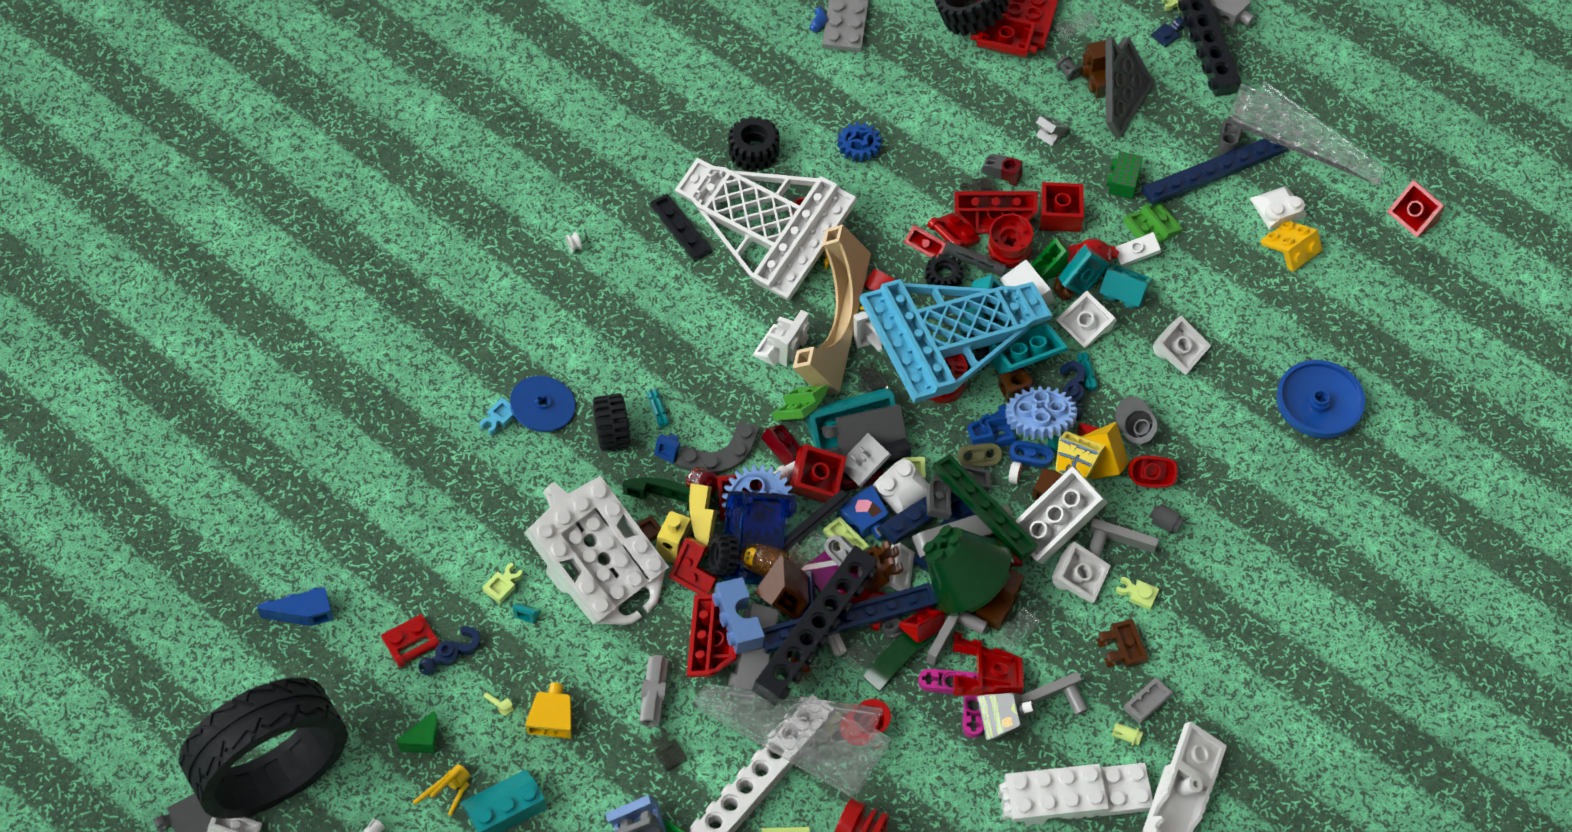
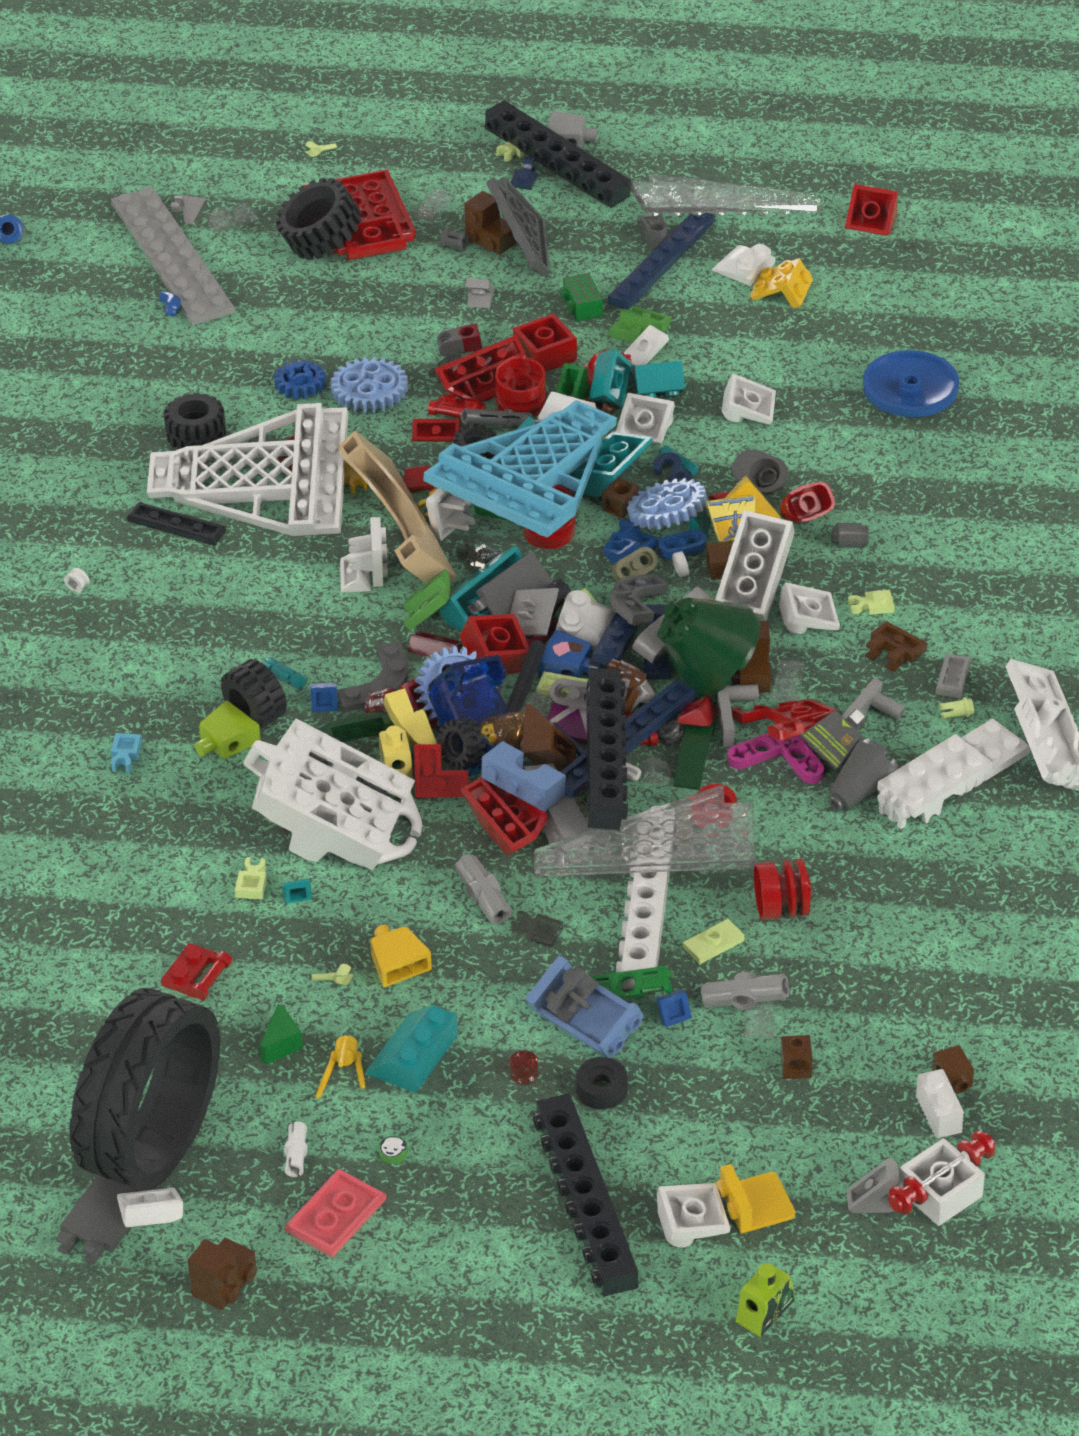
camera: 30 degrees left, 15 degrees down
(304, 608) = (59, 996): blue slope -> none
(448, 651) = (245, 959): dark blue piece -> none
(542, 418) = (161, 721): blue piece -> none
(577, 440) = (227, 732): none -> lime torso
(906, 174) = (369, 384): none -> light blue gear
(985, 507) = (675, 588): dark green plate -> none
(998, 758) = (860, 775): none -> dark grey cone
(1103, 530) = (821, 564): light grey piece -> none

